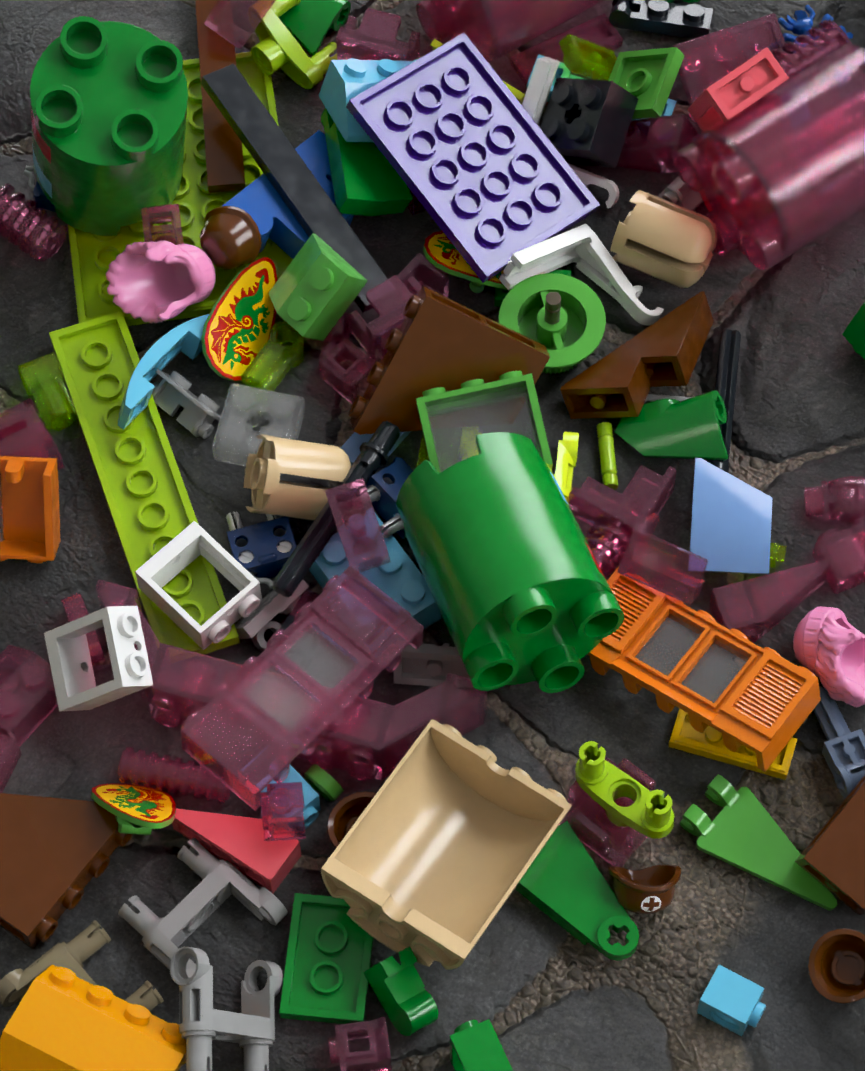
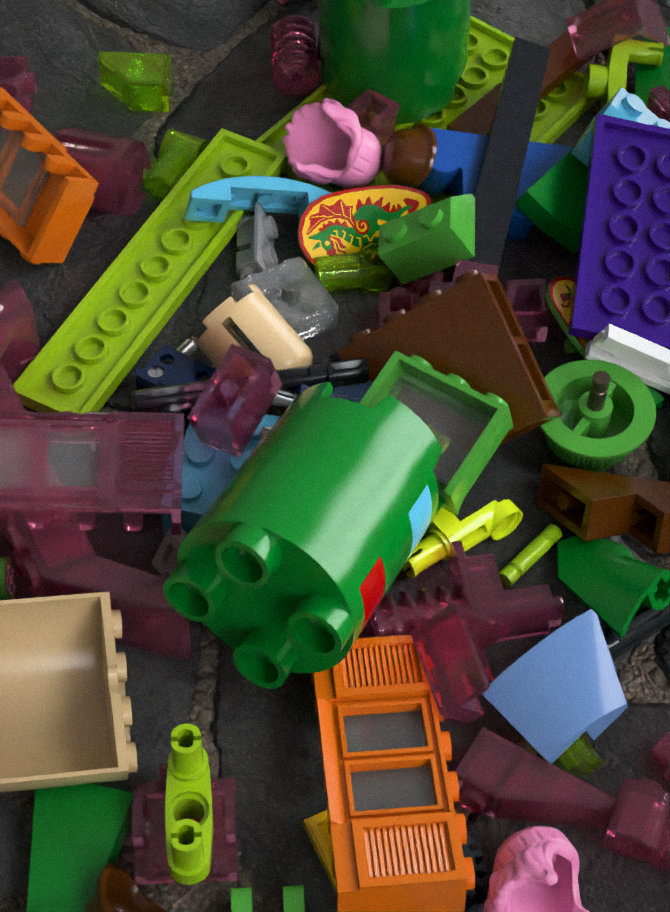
camera: 45 degrees right, 10 degrees down
(177, 556) = (75, 324): white window -> none

